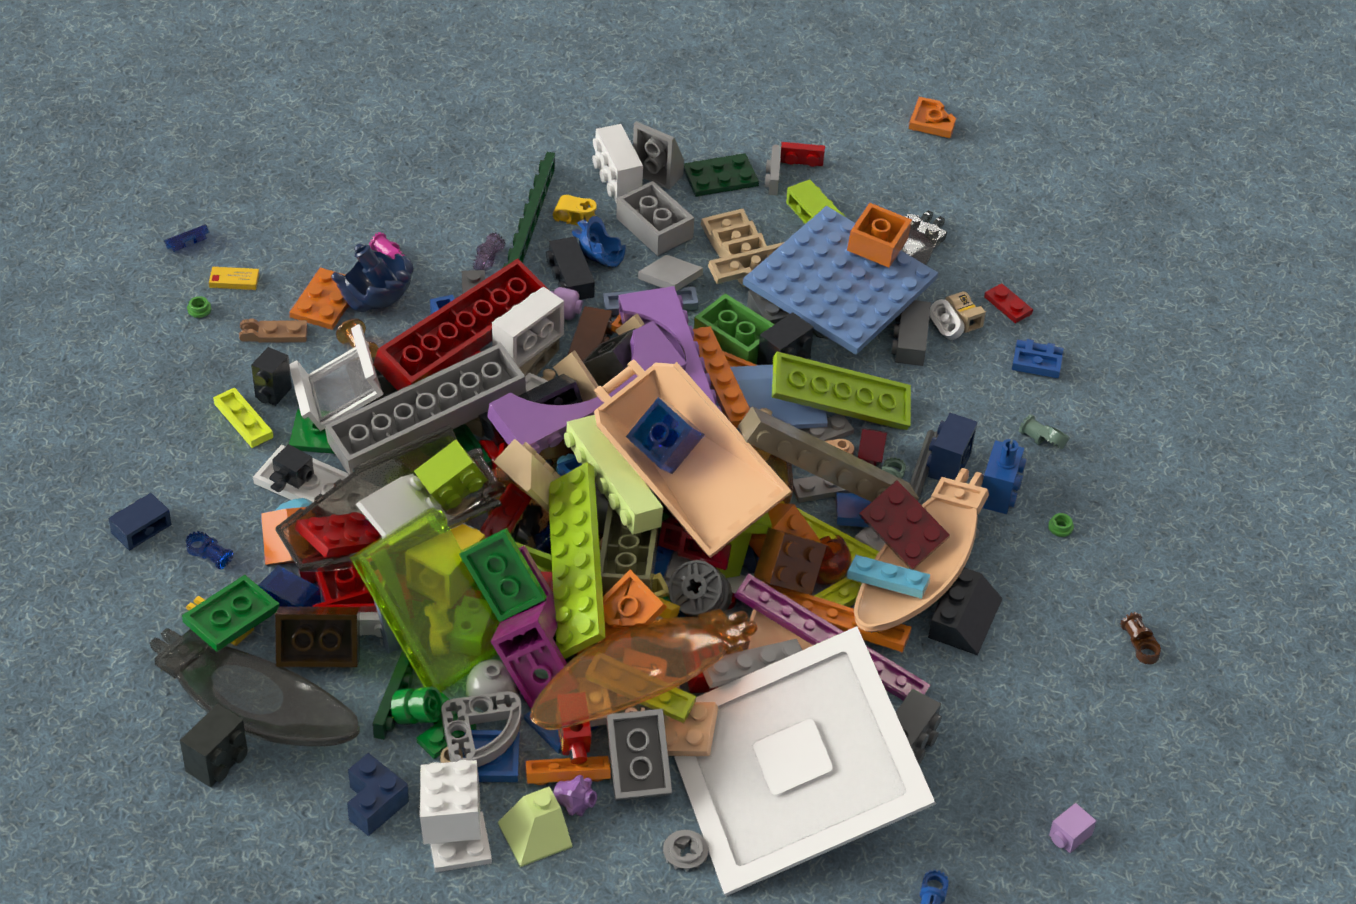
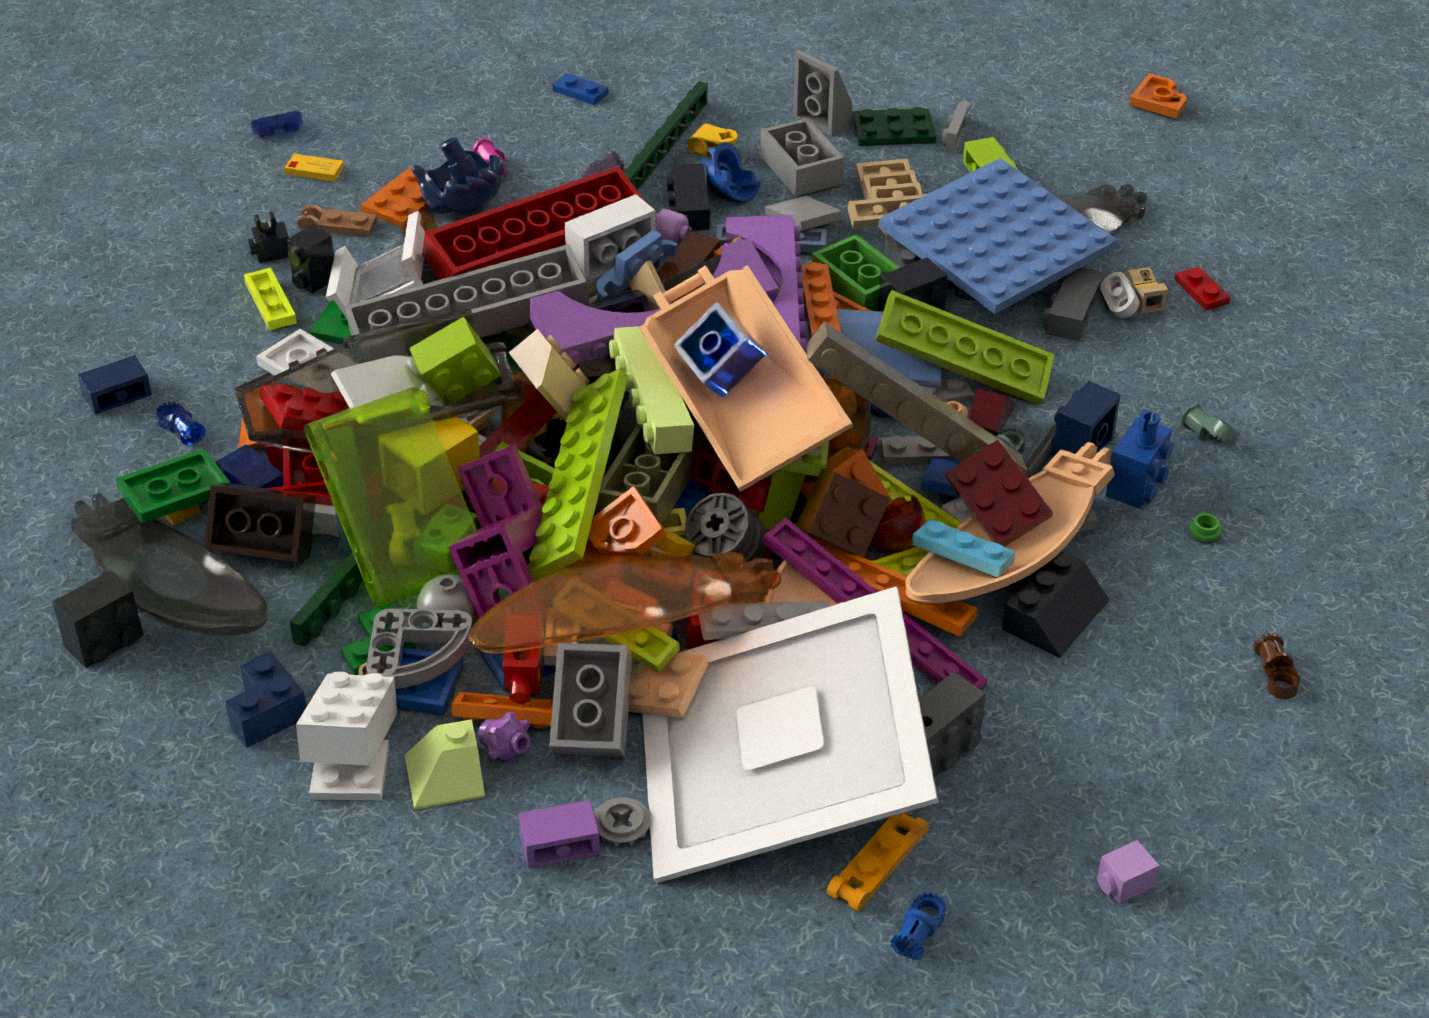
camera: 15 degrees right, 5 degrees down
(199, 307) = (264, 189): bright green plate -> none
(224, 360) = (269, 240): none -> black brick
(291, 467) = (294, 344): black brick -> none
(416, 705) = (347, 610): green wheel -> none
(441, 167) = (580, 89): none -> blue plate
(502, 575) = (482, 474): green plate -> none
(552, 351) = (630, 261): none -> medium blue plate
(617, 161) = (774, 93): white brick -> none
(642, 869) = (559, 833): none -> medium lavender brick
(802, 154) = (994, 114): red plate -> none
(879, 235) = (1051, 187): orange brick -> none
(885, 854) = (877, 860): none -> light orange plate
(1037, 358) = (1222, 348): blue plate -> none

